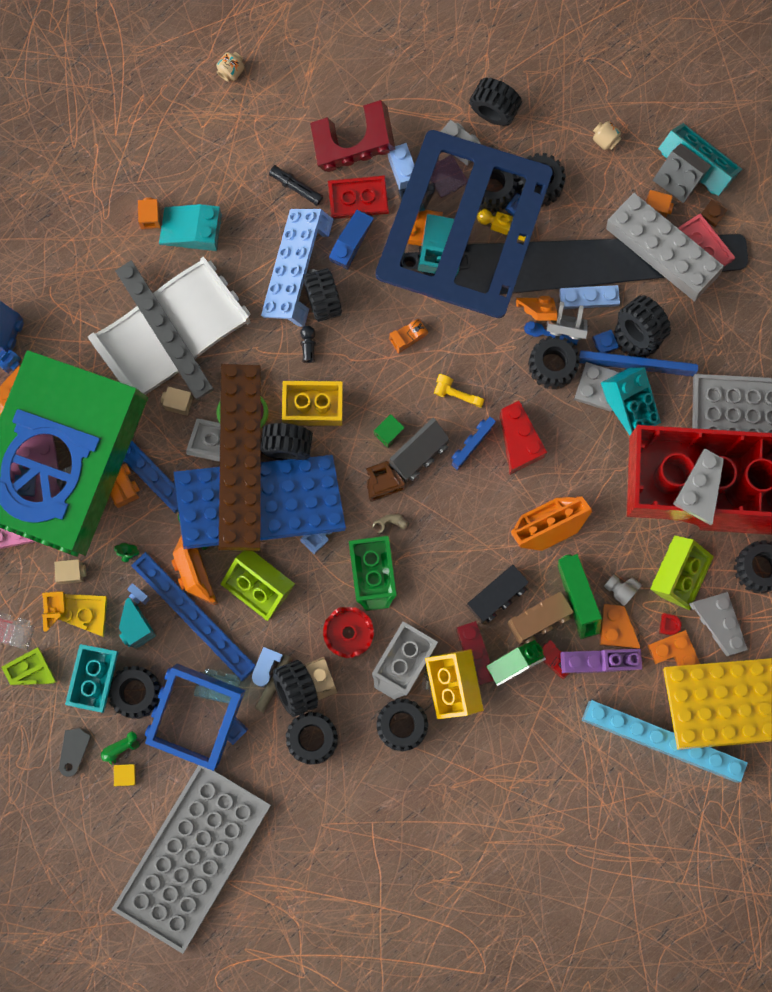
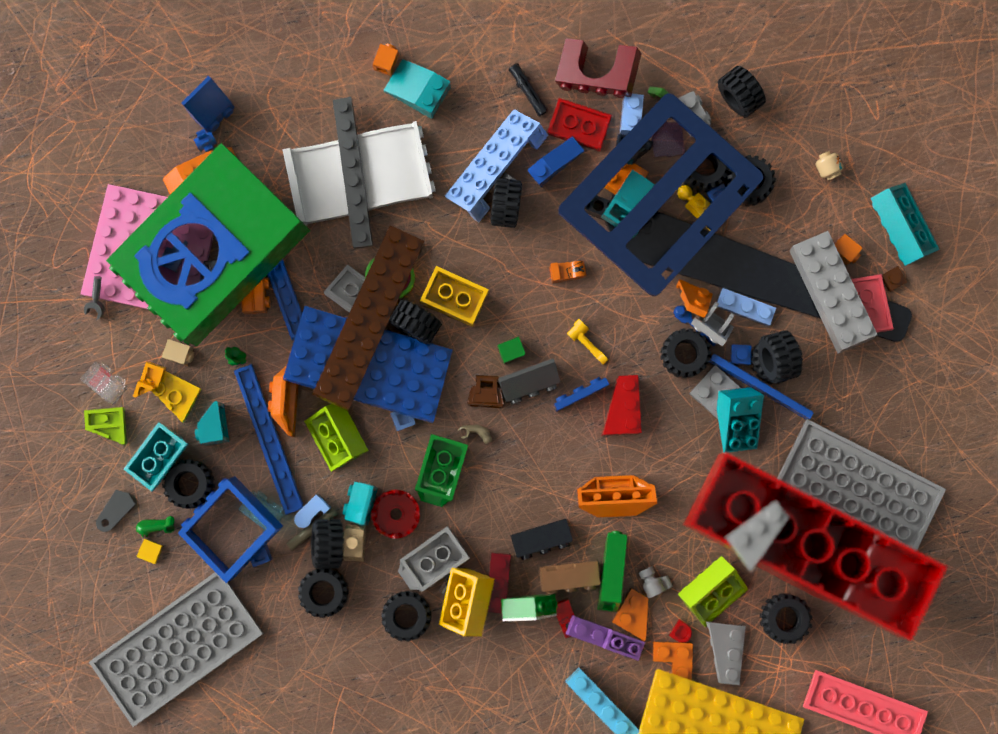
camera: 20 degrees right, 5 degrees up
(137, 595) = (227, 400): medium blue plate -> none
(177, 400) = (336, 241): tan brick -> none
(307, 334) = (478, 231): black pin -> none
(309, 636) = (360, 503): none -> slope
(416, 136) = (656, 91): none -> bright green tile
(681, 173) = (880, 231): dark grey brick -> none

